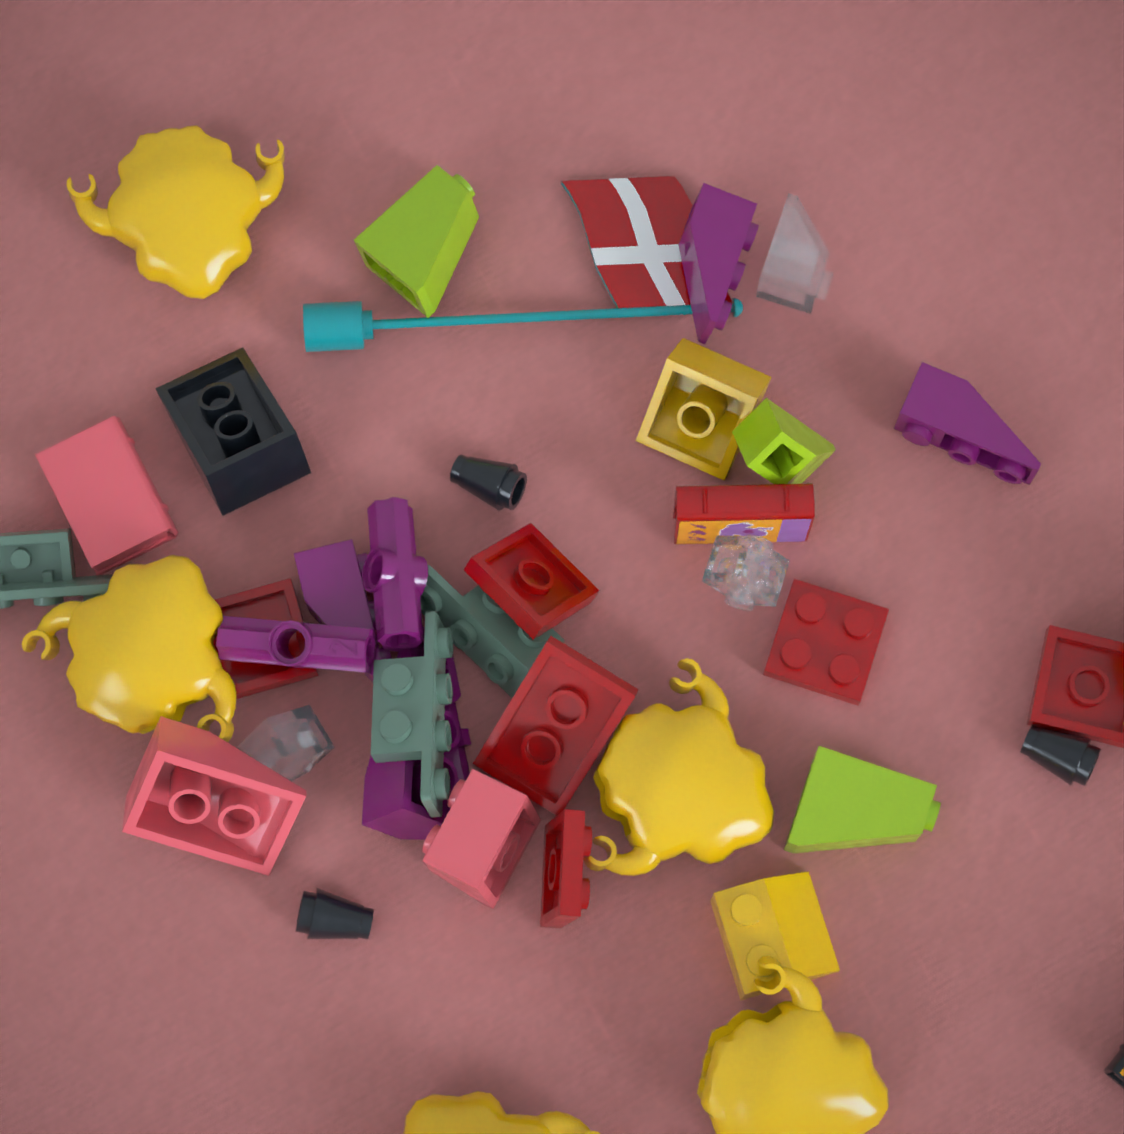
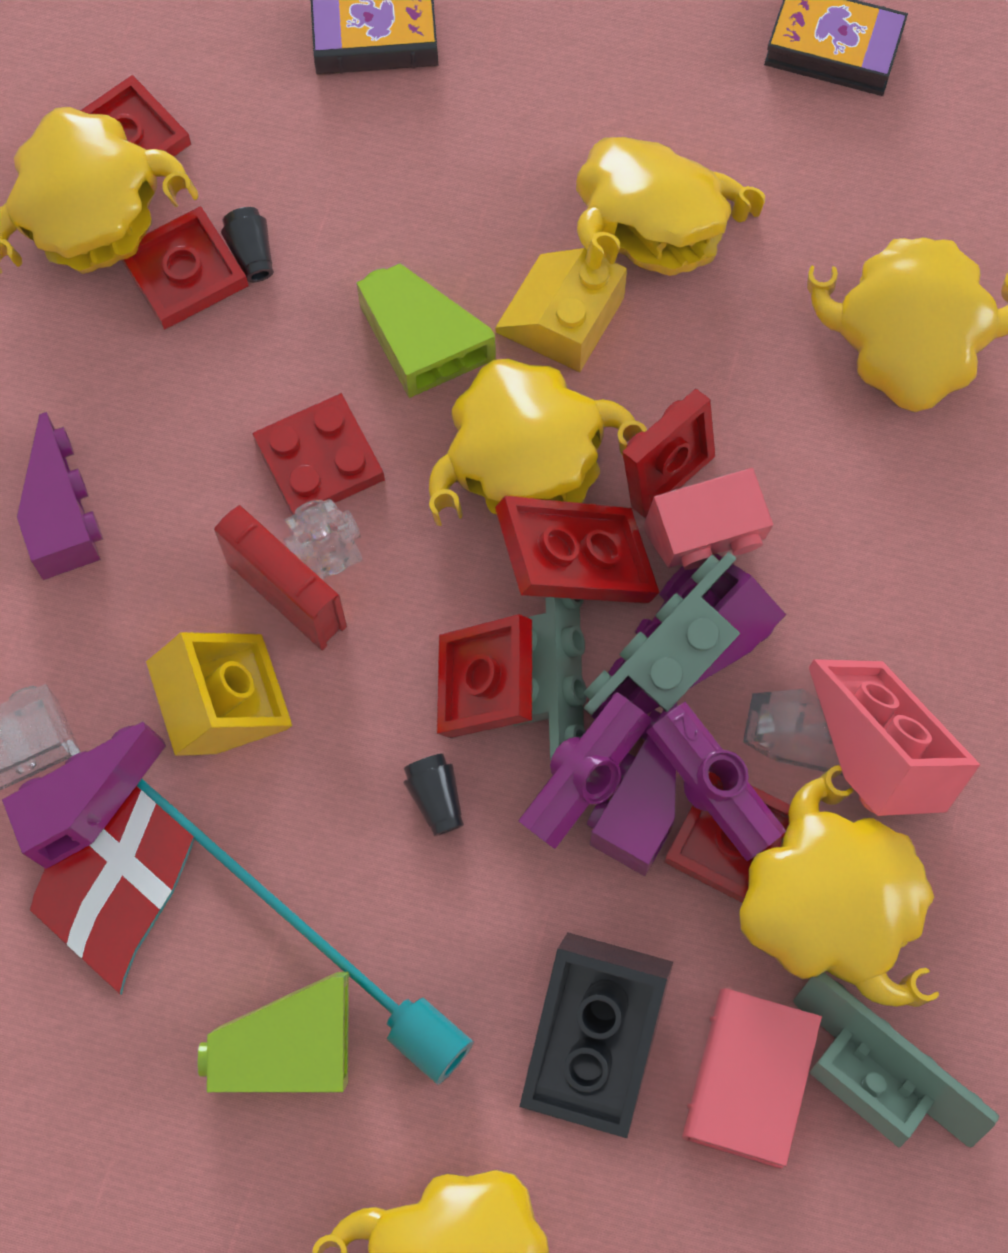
camera: 135 degrees left, 5 degrees down
(332, 917) = (864, 585): black cone -> none
(780, 445) = (203, 588): lime slope -> none

